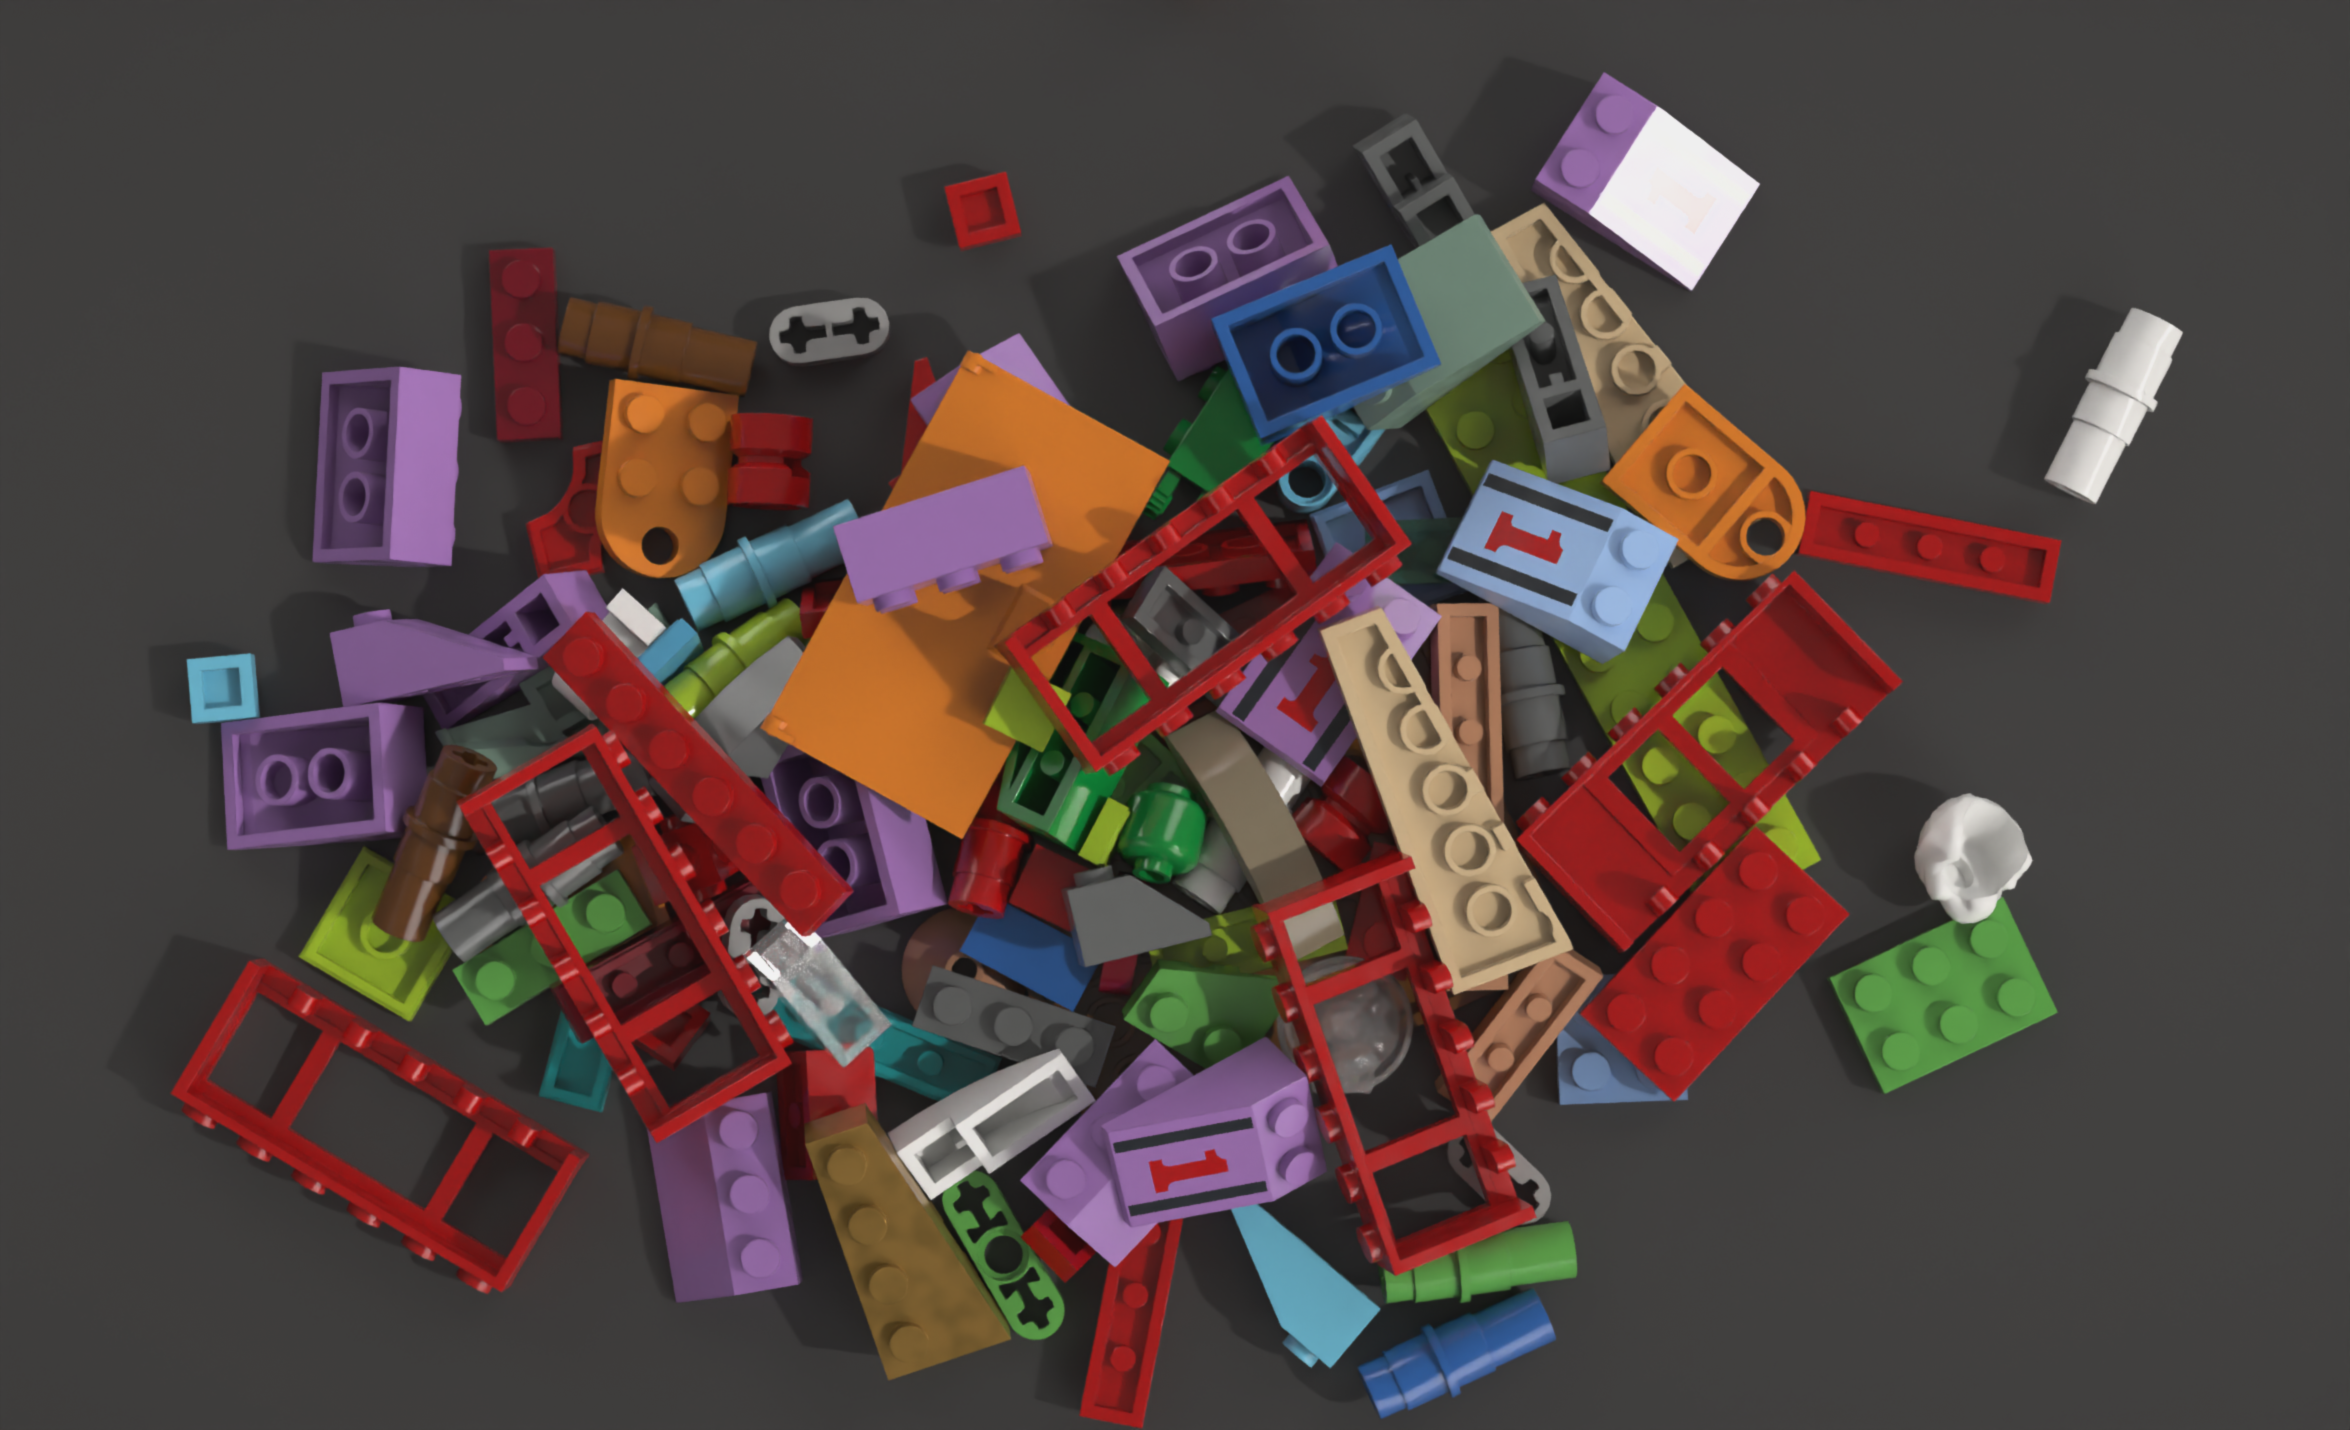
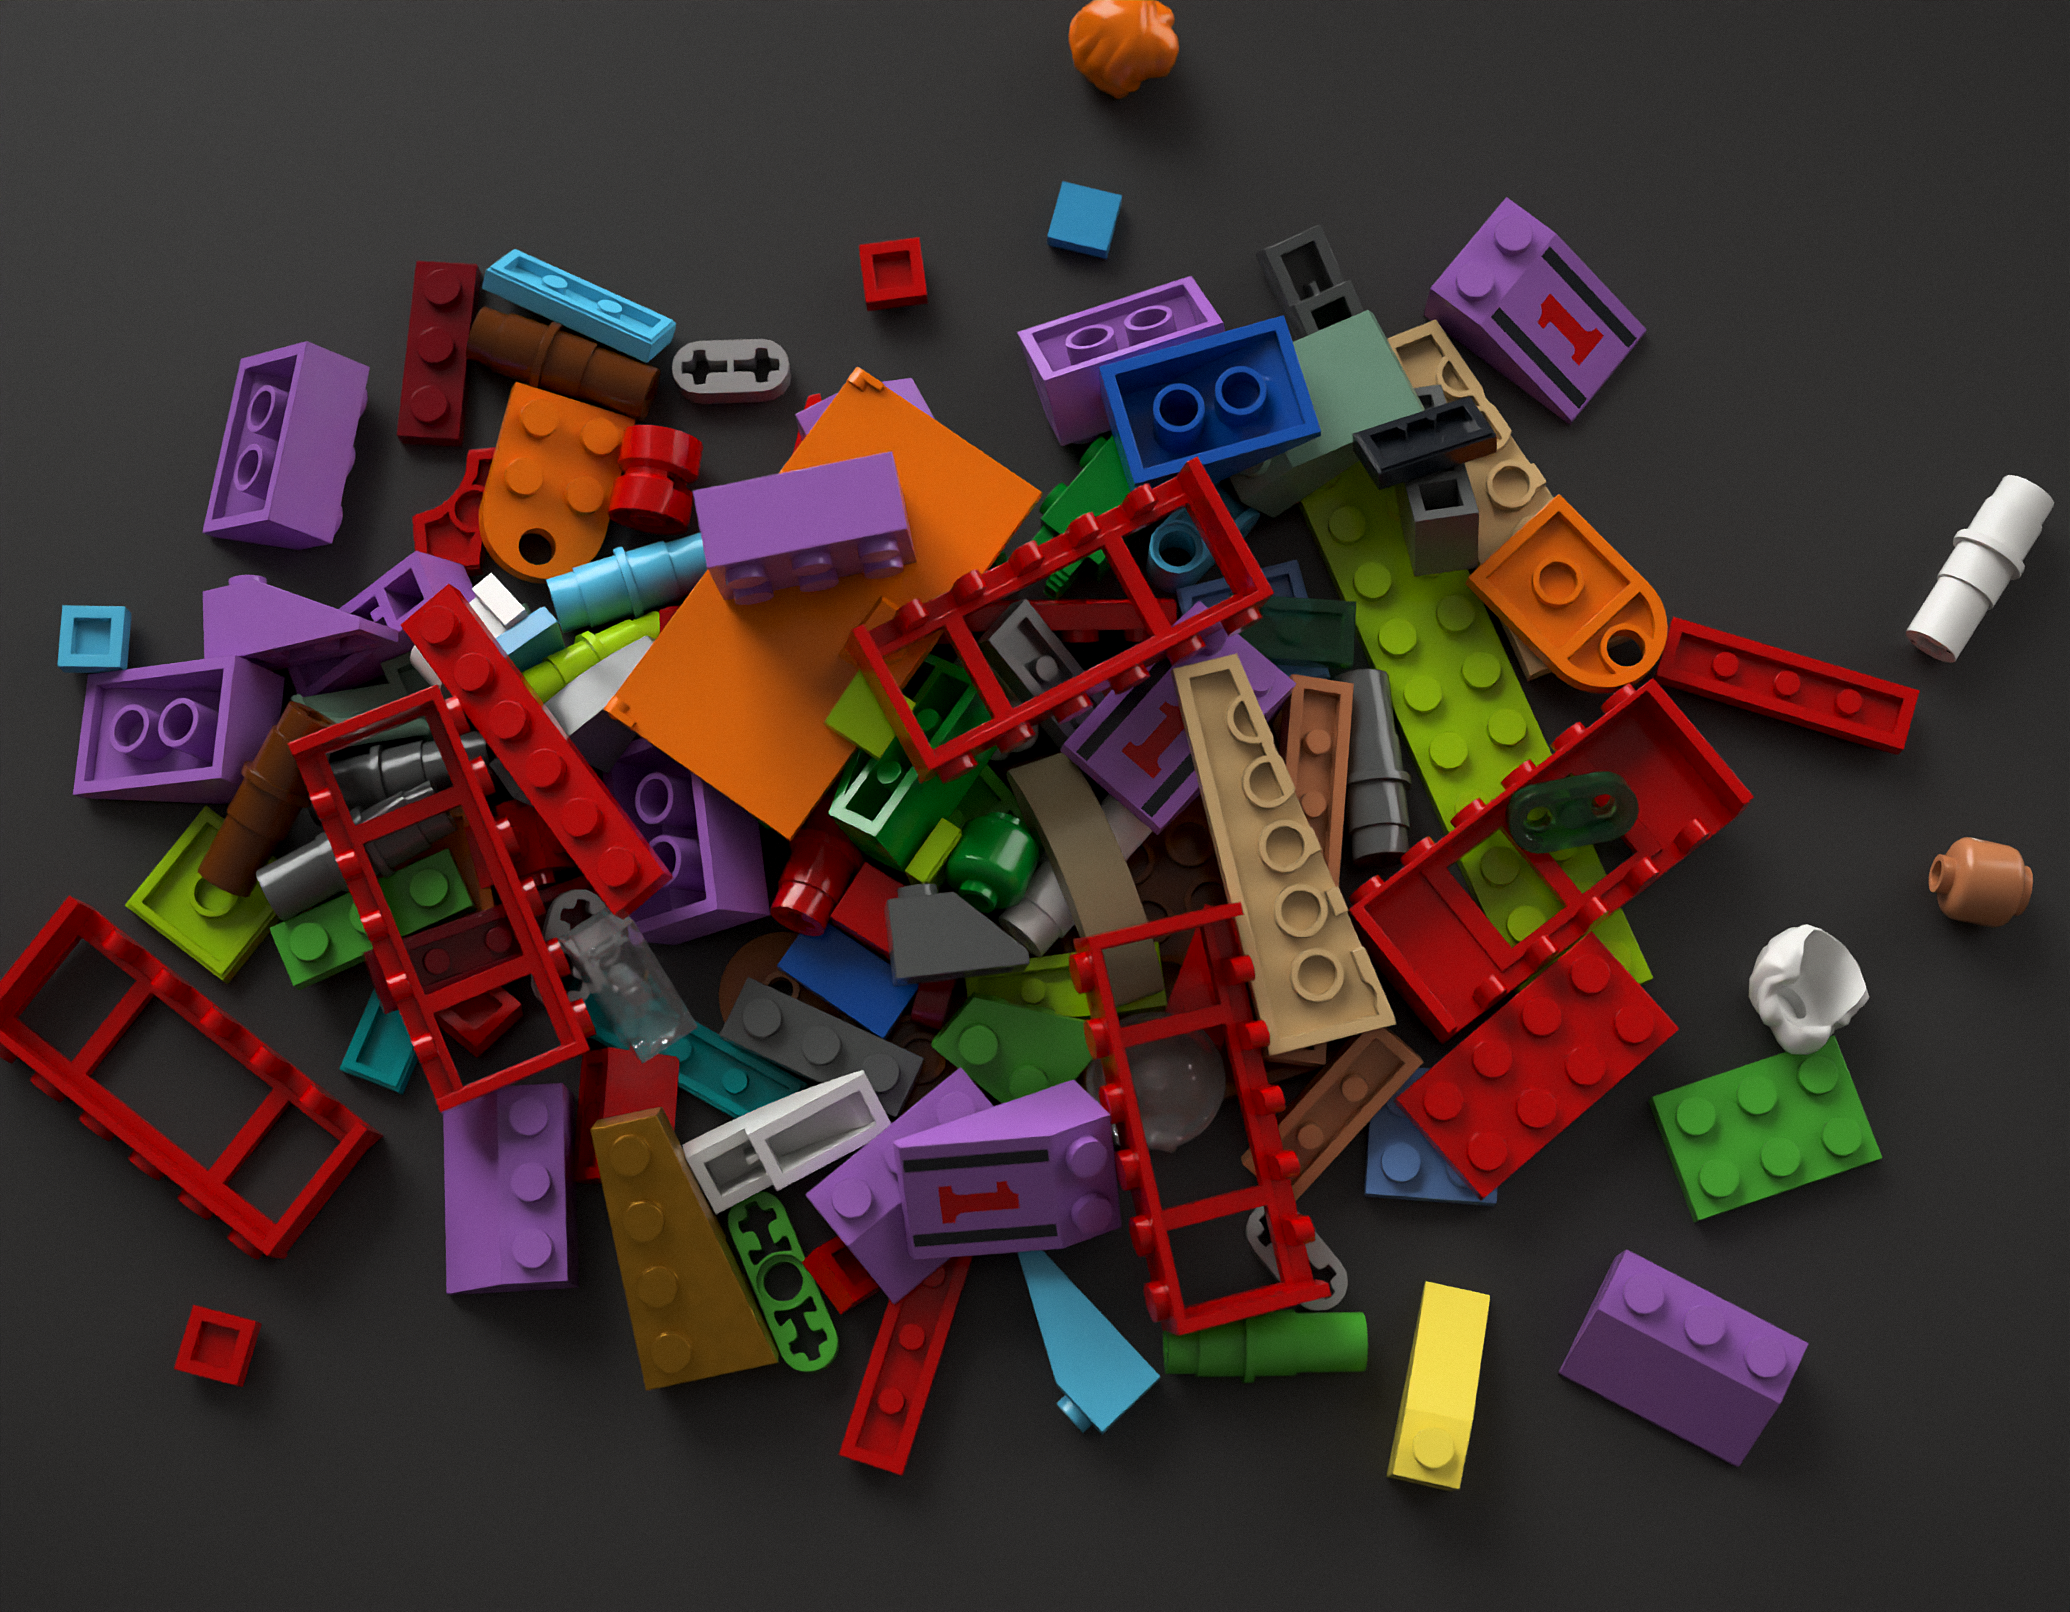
camera: 10 degrees right, 10 degrees down
(462, 1380) = (217, 1345): none -> red plate
(665, 281) = (579, 305): none -> medium azure tile
(1172, 128) = (1084, 220): none -> dark azure tile
(1343, 816) = (1179, 871): red wheel -> none
(1455, 1353) = (1233, 1435): blue piece -> none
(1545, 355) = (1424, 443): none -> black plate
(1557, 559) = (1418, 646): light blue slope -> none
(1649, 1284) = (1440, 1388): none -> light yellow slope
(1724, 714) = (1569, 813): none -> clear green plate
(1878, 1230) = (1682, 1358): none -> medium lavender slope
(2135, 729) = (1981, 882): none -> nougat head

